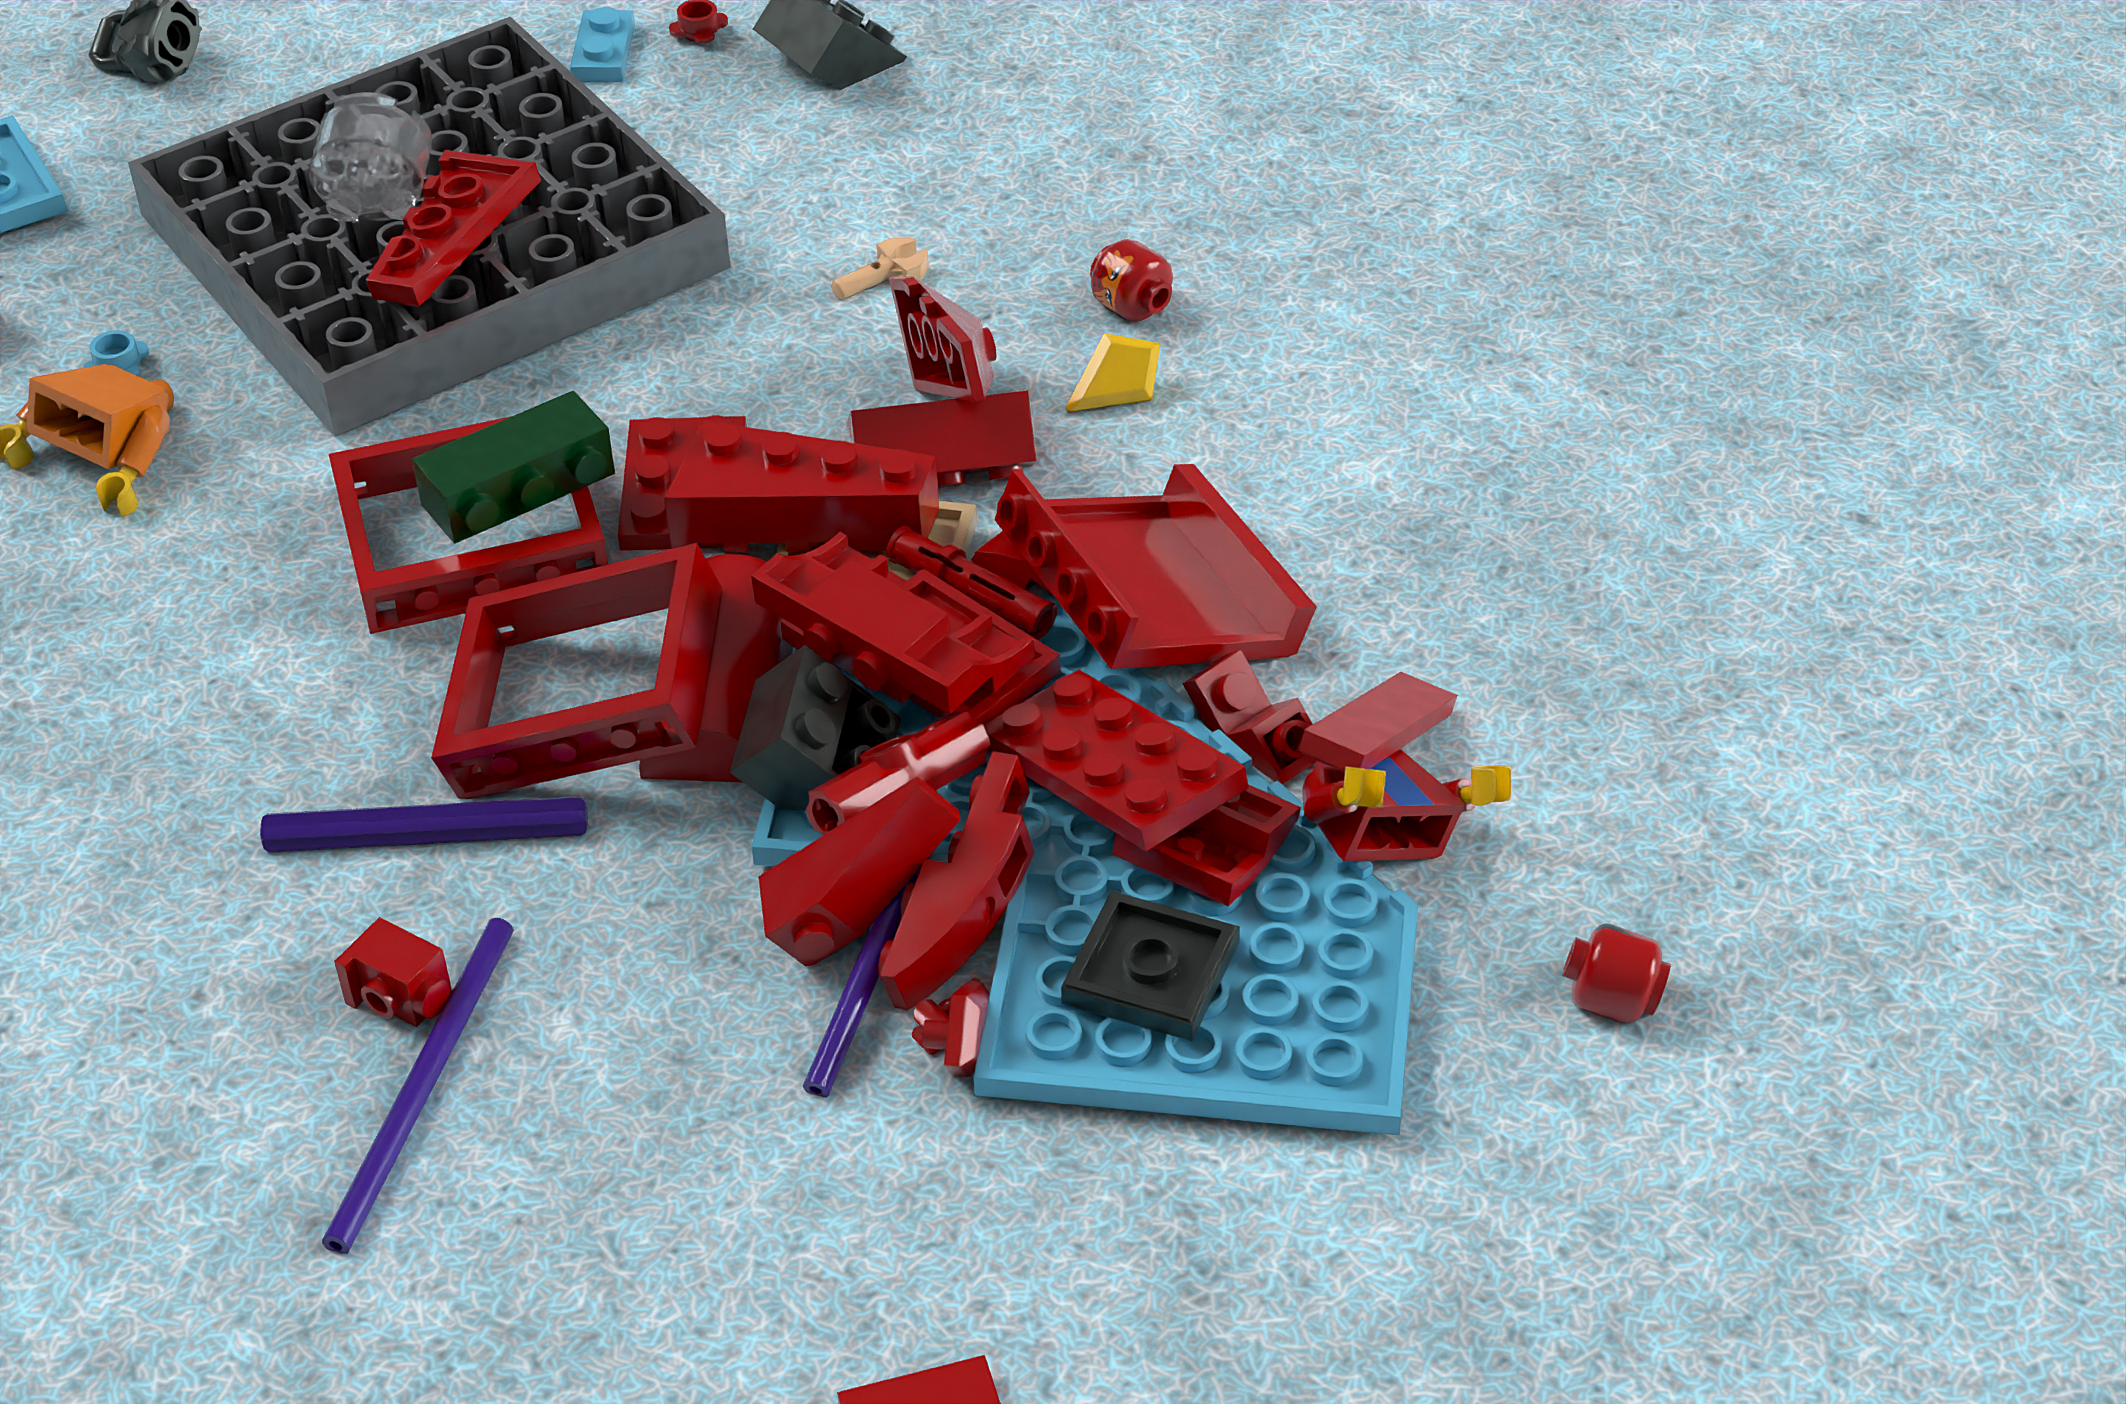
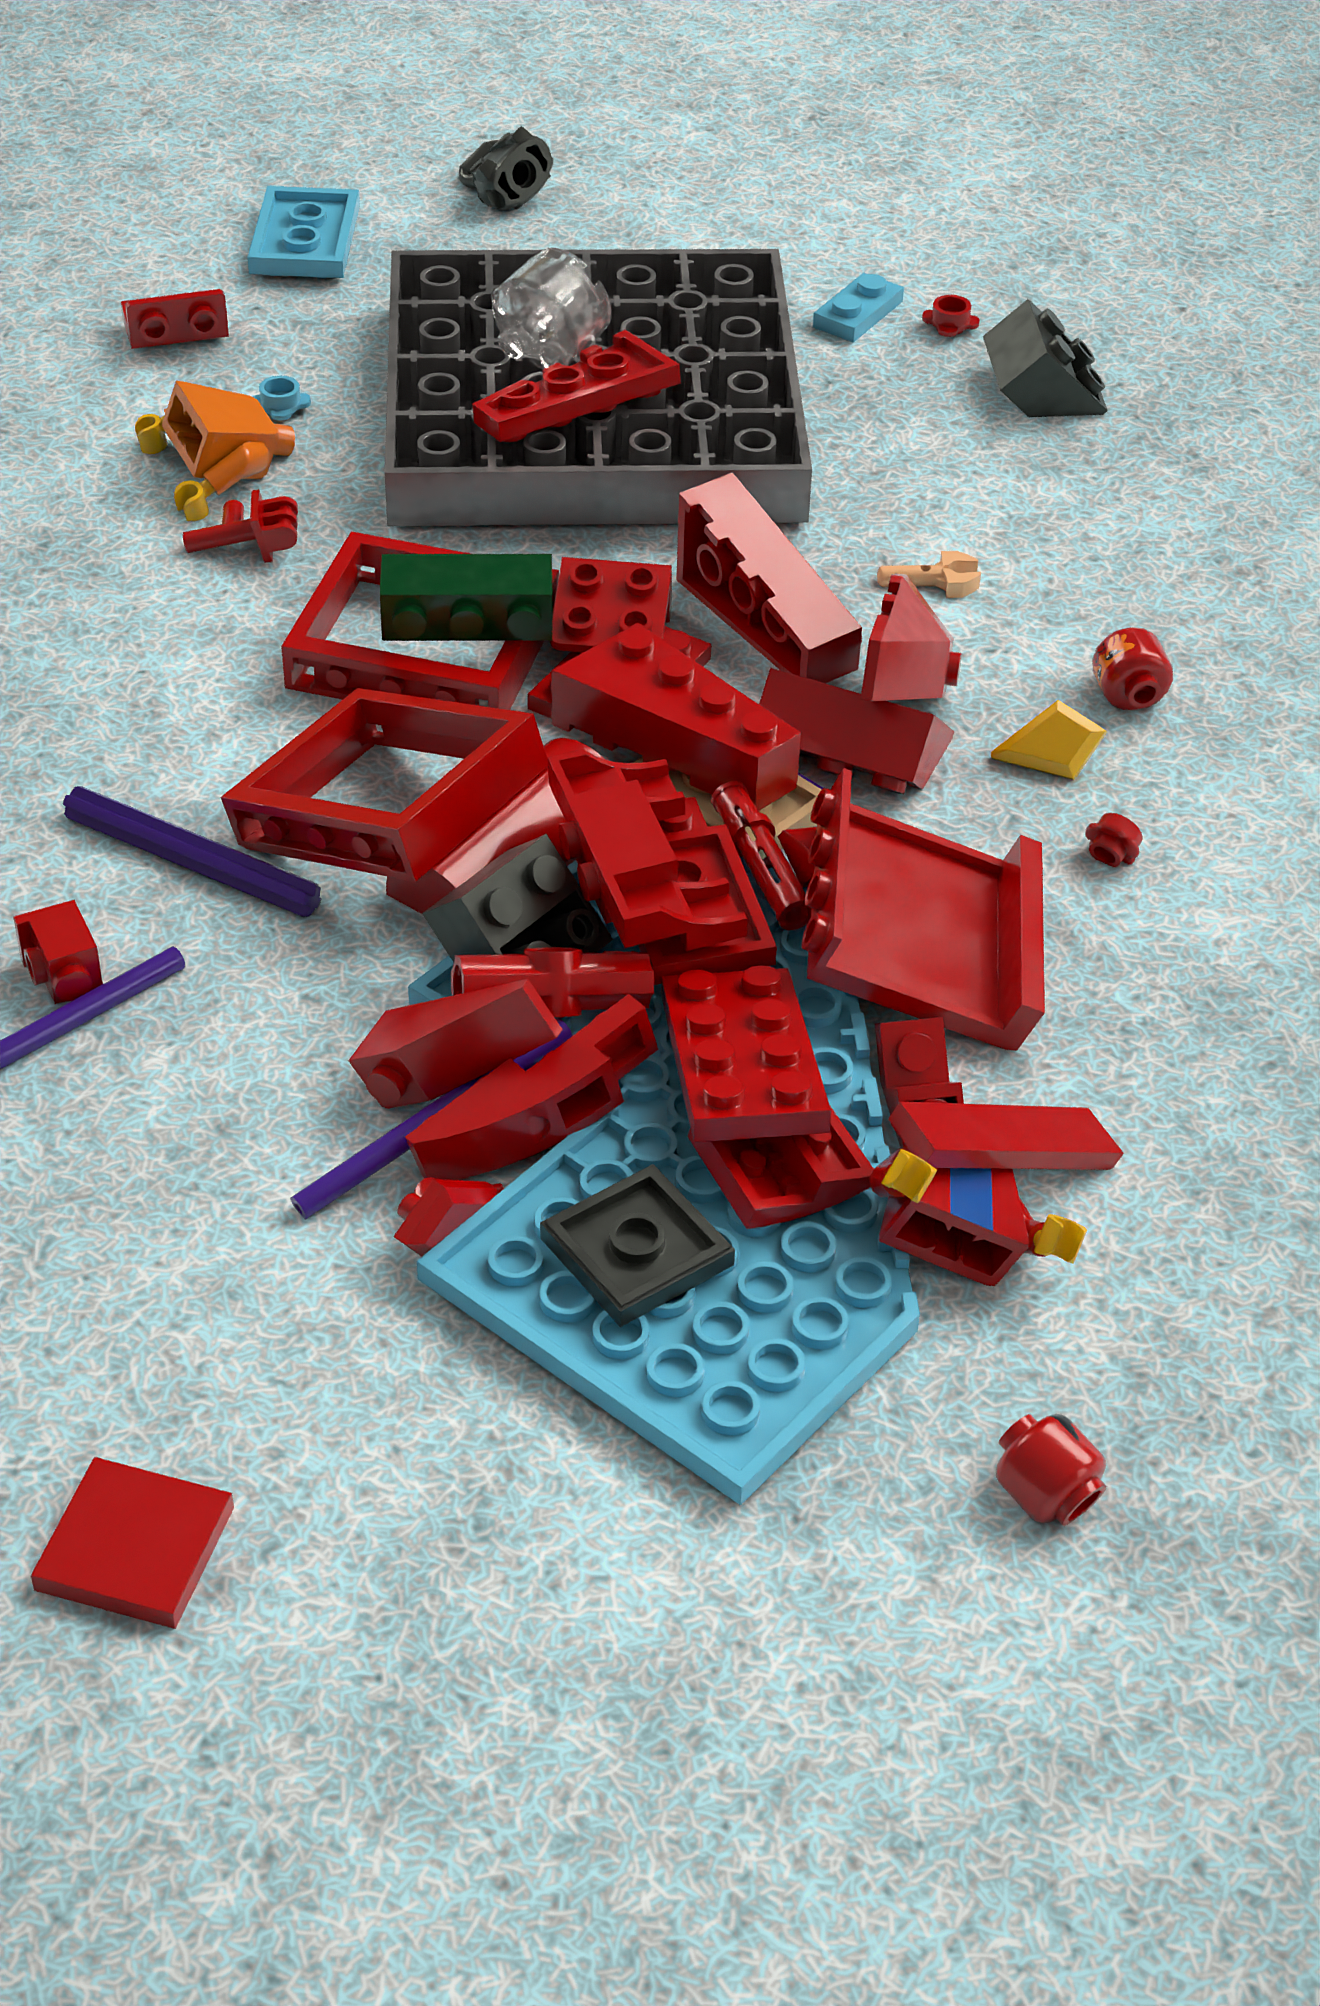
camera: 30 degrees right, 0 degrees up
(228, 482) = (271, 524): none -> red arm
(647, 416) = (607, 597): none -> red bracket
(754, 341) = (761, 583): none -> red wedge
(1234, 436) = (1114, 839): none -> red plate

